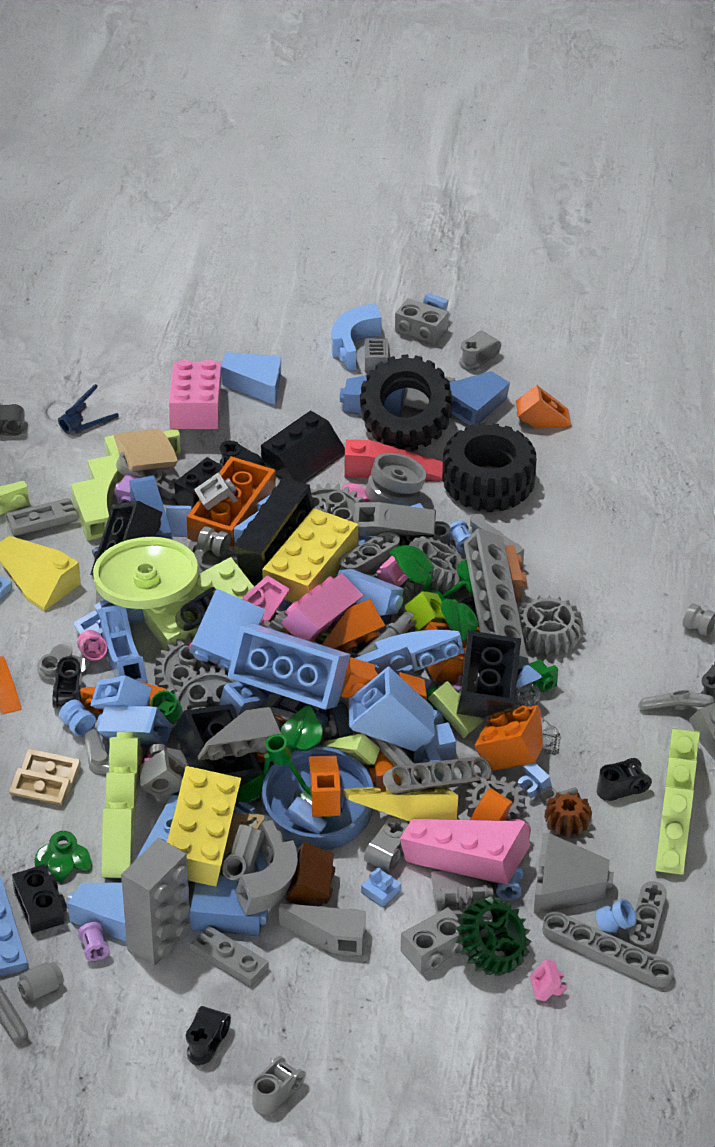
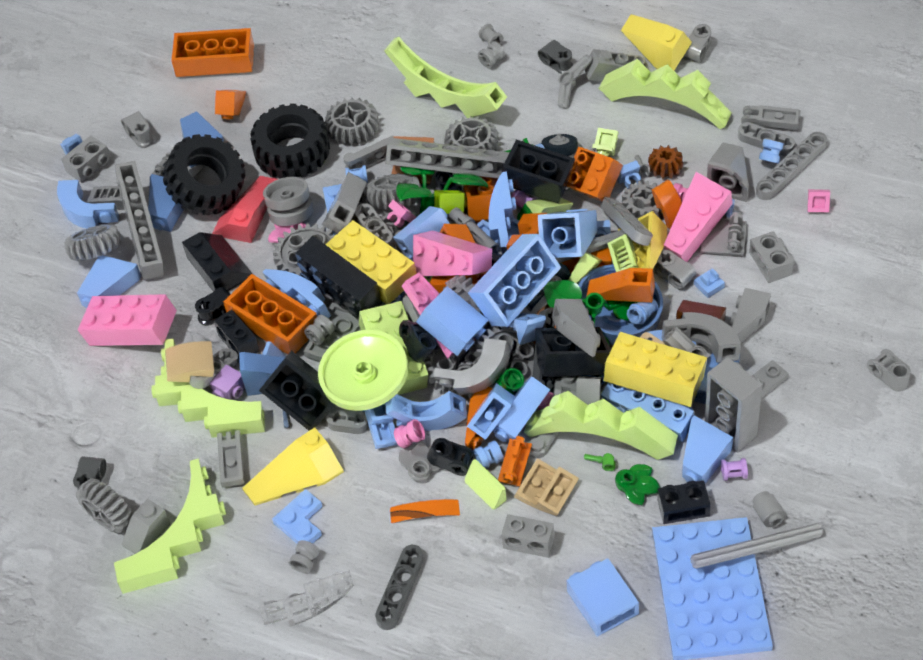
camera: 70 degrees left, 10 degrees up
(39, 726) = (485, 485): none -> yellowish green slope
(72, 418) = (110, 422): dark blue plant -> none
(74, 740) = (515, 461): none -> orange hinge
(88, 826) = (607, 461): none -> bright green hand
(180, 677) = (482, 374): none -> light grey arch
(206, 1034) = (835, 405): black piece -> none
(215, 490) = (273, 312): light grey bracket -> none
(296, 347) = (92, 242): none -> light grey gear
(331, 371) = (139, 220): none -> light grey brick
(372, 778) = (618, 245): none -> yellowish green slope
(483, 938) = (782, 218): dark green gear -> none
(545, 516) = (352, 121): none -> light grey gear
(562, 706) = (561, 143): none -> black wheel
(582, 751) = (606, 141): none -> yellowish green bracket
(607, 604) = (422, 79): none -> yellowish green arch
(610, 378) = (213, 52): none -> orange brick
(620, 779) = (638, 127): black piece -> none
(687, 919) = (772, 116): none -> light grey hinge

